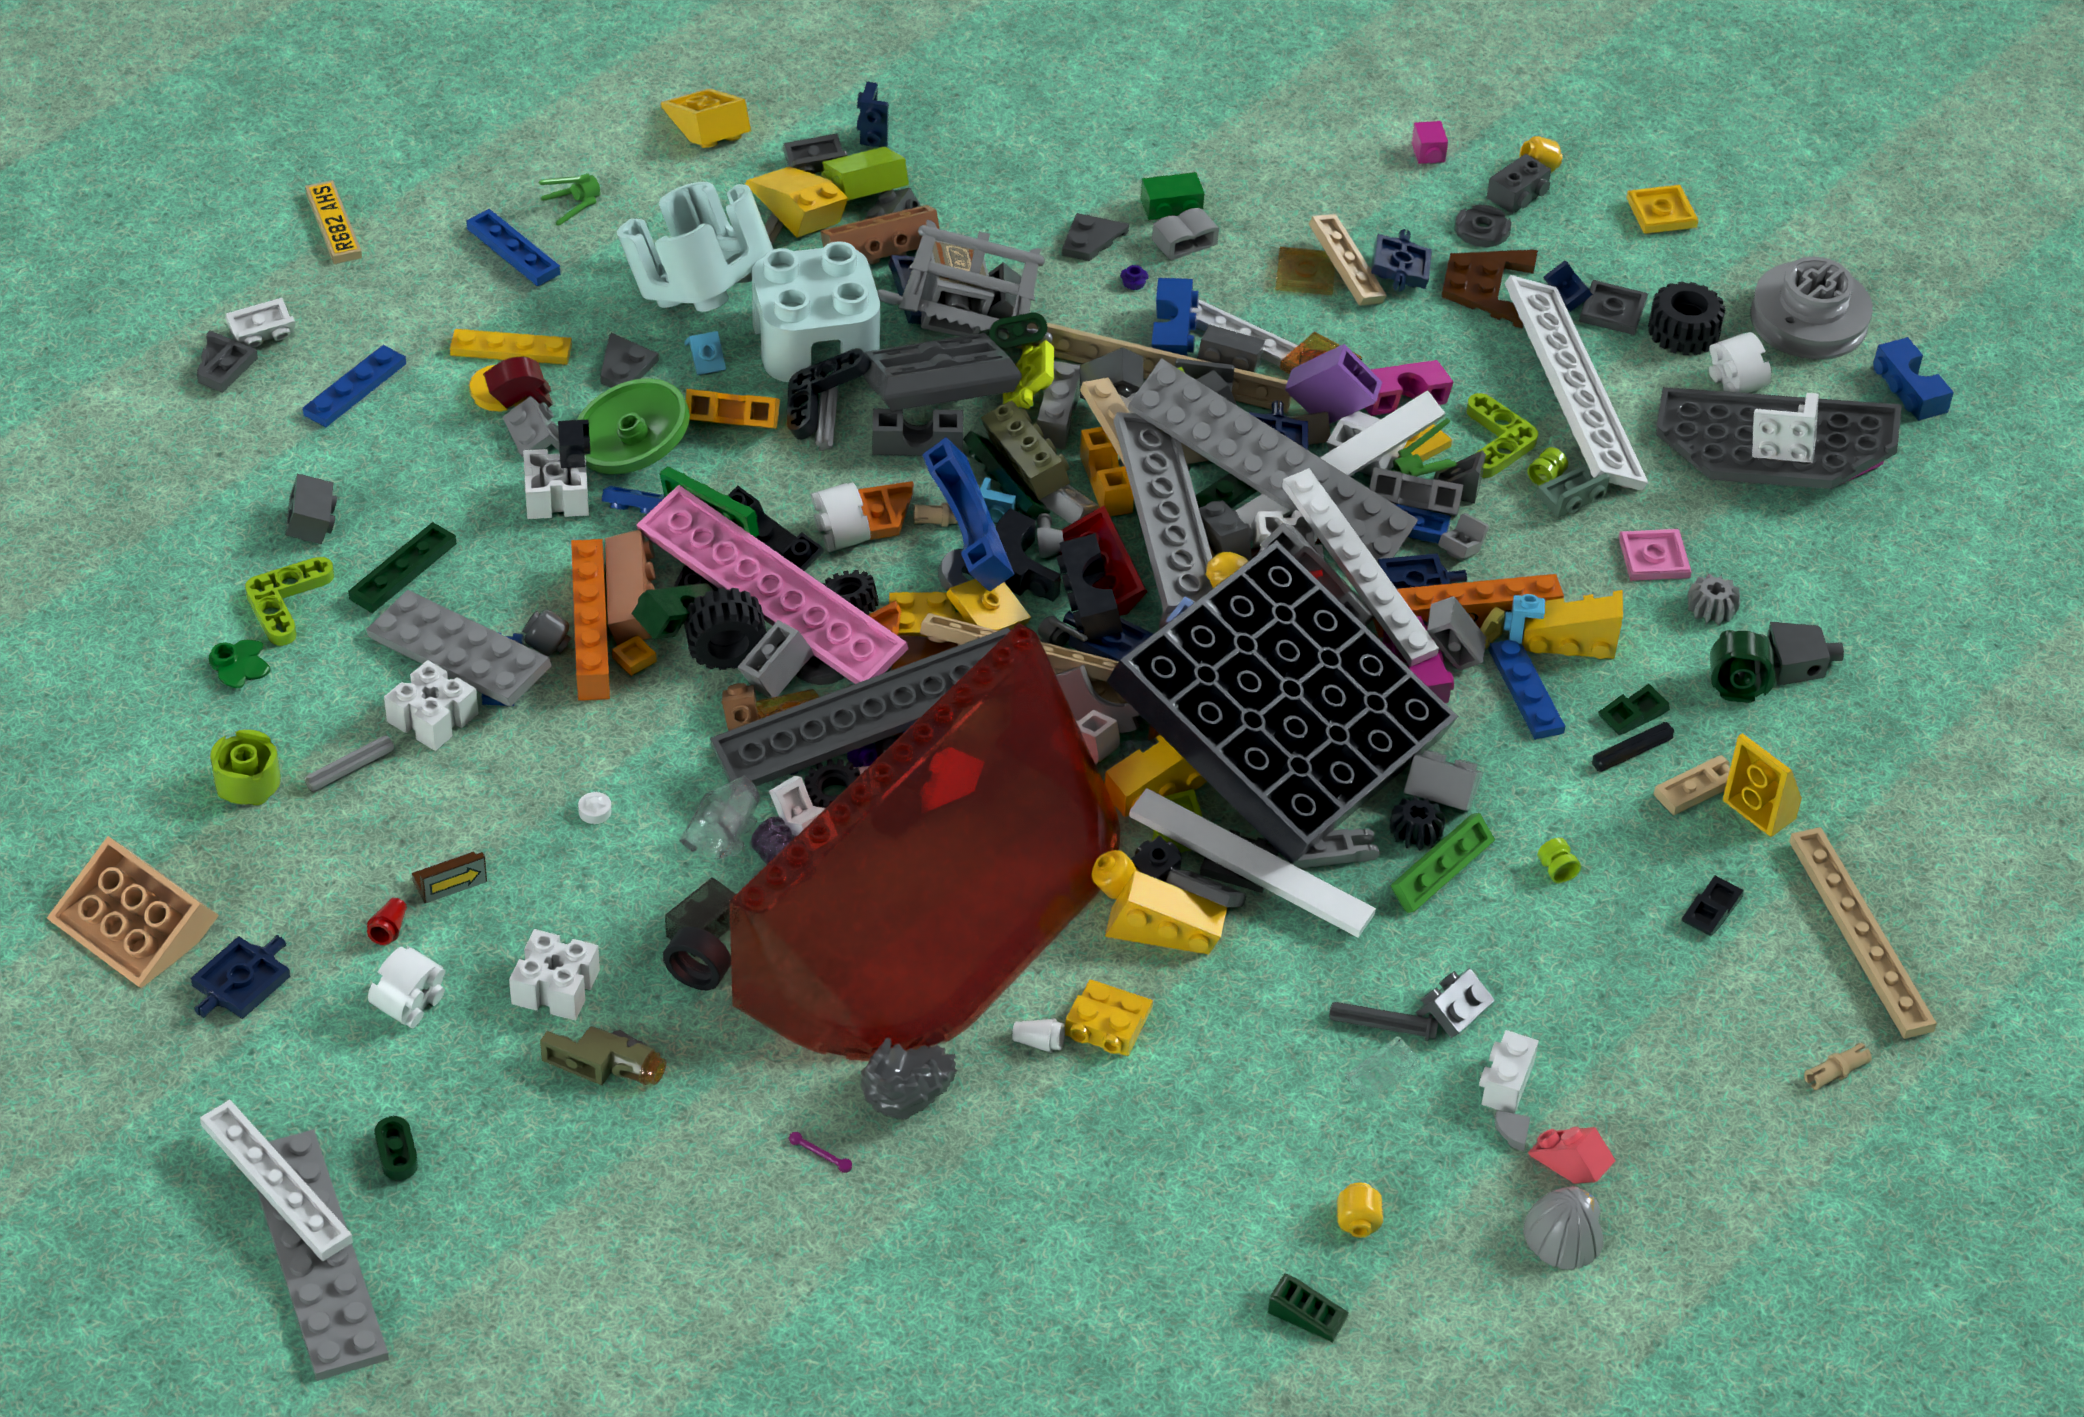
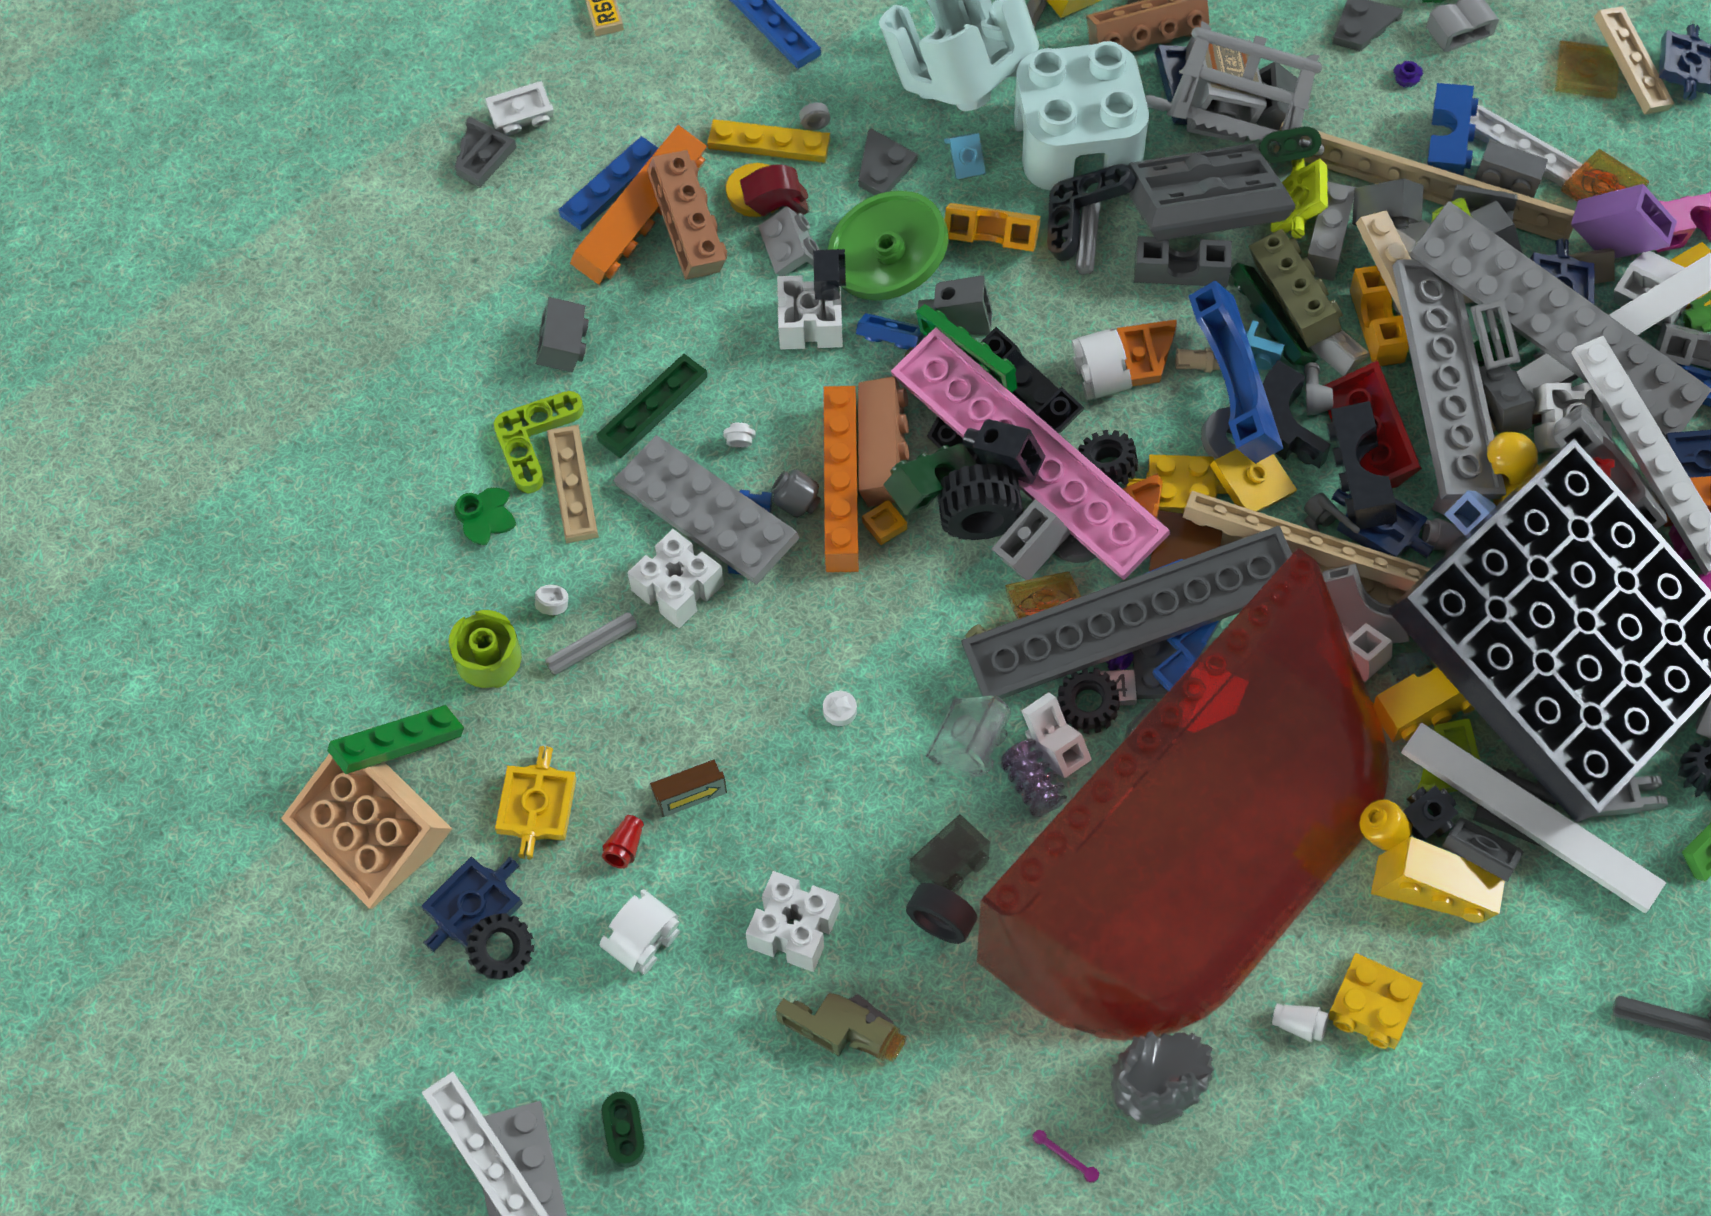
camera: 10 degrees right, 15 degrees up
(161, 838) = (395, 739): none -> green plate
(277, 987) = (521, 946): none -> black tyre
(300, 893) = (536, 803): none -> yellow plate
(308, 729) = (551, 599): none -> white tile
(325, 635) = (572, 484): none -> tan tile
(383, 400) = (629, 215): none -> orange brick
(431, 404) = (687, 214): none -> nougat brick
(489, 588) = (739, 435): none -> white plate
(555, 323) = (814, 116): none -> light grey tile
(708, 466) = (964, 303): none -> dark grey torso
(739, 705) = (992, 590): medium nougat bracket -> none
(753, 572) = (1007, 447): none -> black torso
(1218, 496) = (1483, 338): none -> light grey tile

